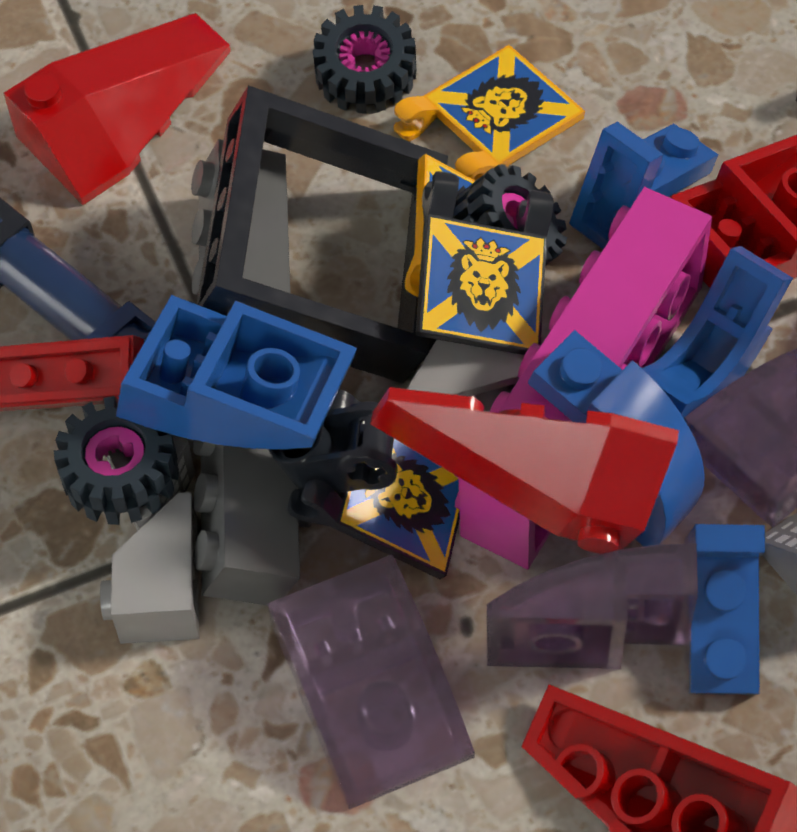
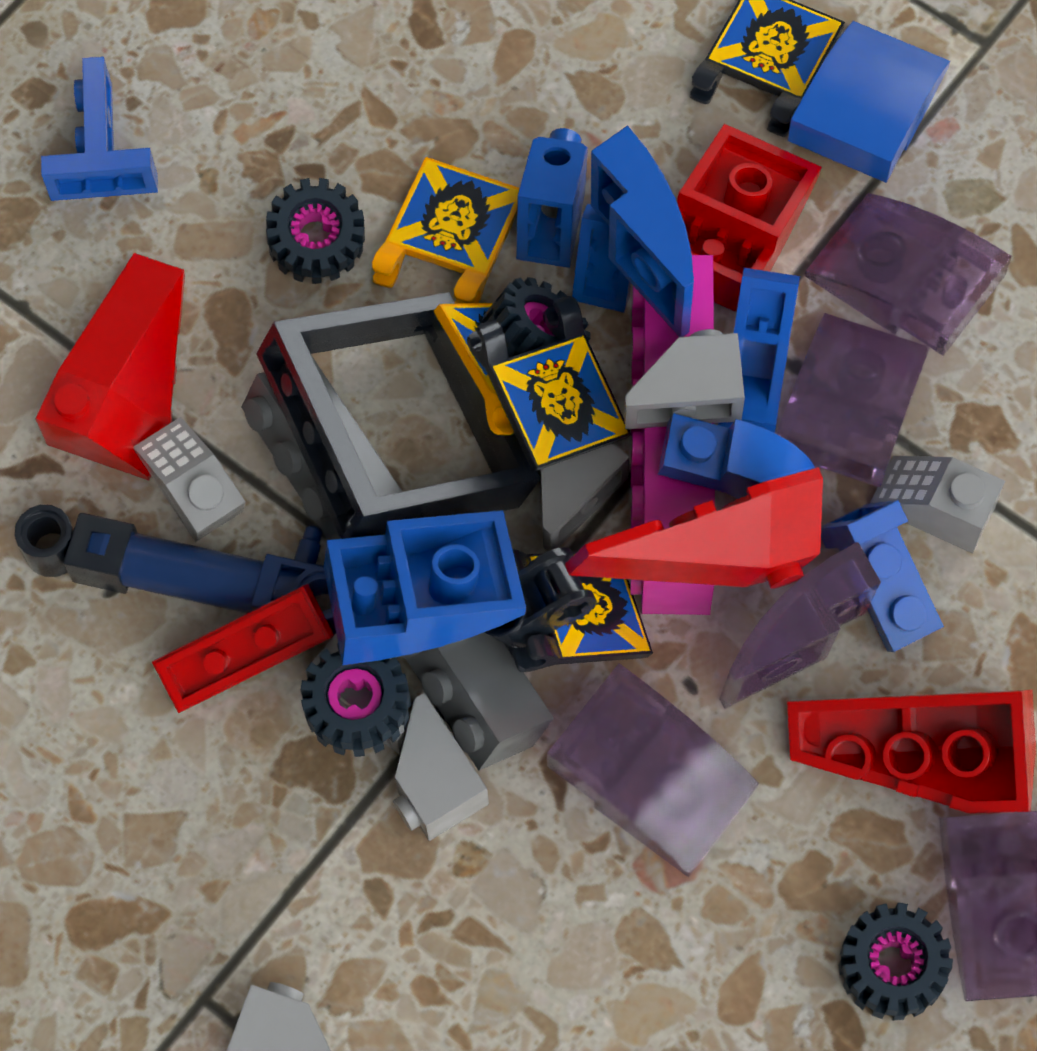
camera: 30 degrees left, 10 degrees up
(109, 215) = (190, 478): none -> light grey slope
(587, 103) = (554, 179): none -> blue torso
(612, 304) = (692, 379): none -> light grey slope
(645, 144) = (644, 226): none -> blue slope

